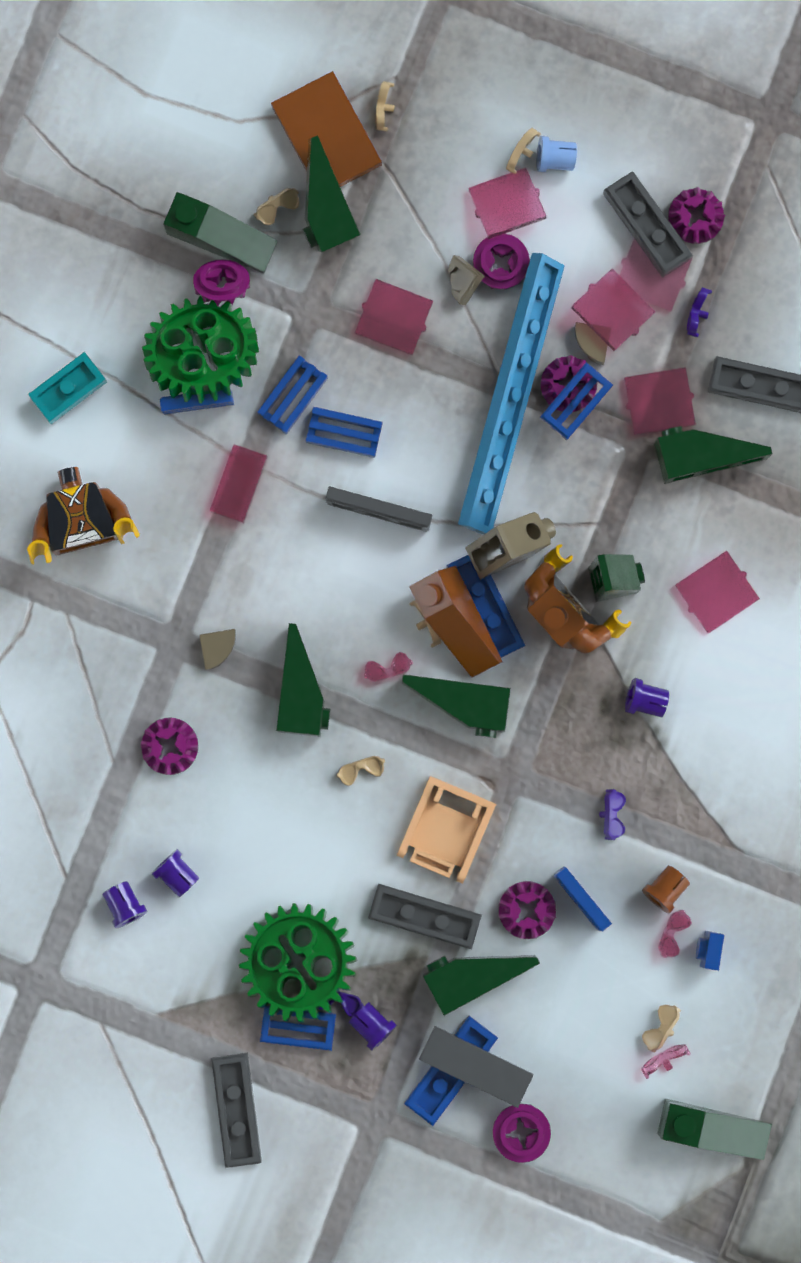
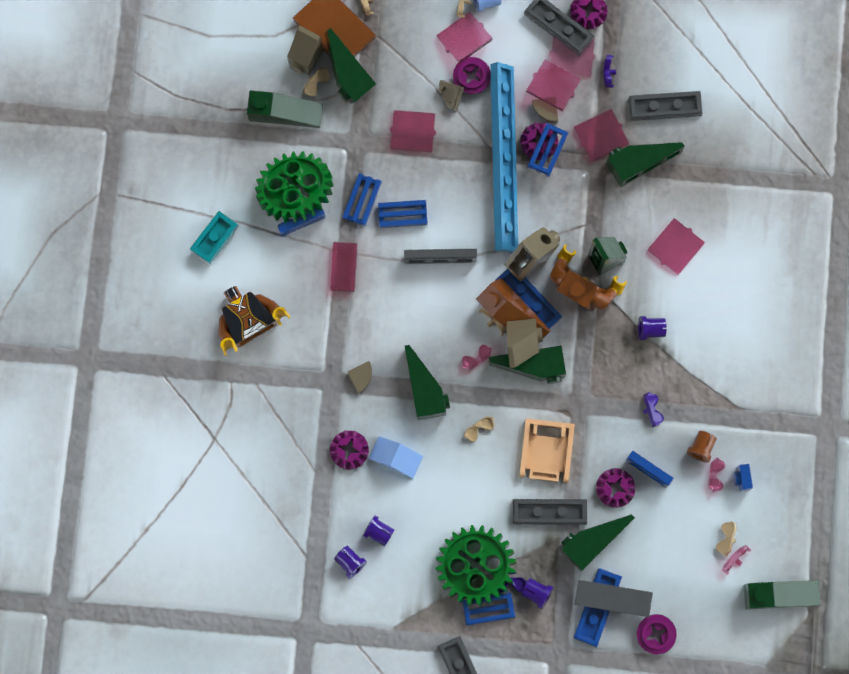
camera: 10 degrees left, 5 degrees down
(210, 275) = (285, 140): magenta gear -> none
(231, 776) = (396, 457): none -> light blue slope
(272, 157) = (304, 51): none -> dark tan slope
(456, 666) = (522, 340): none -> dark tan slope

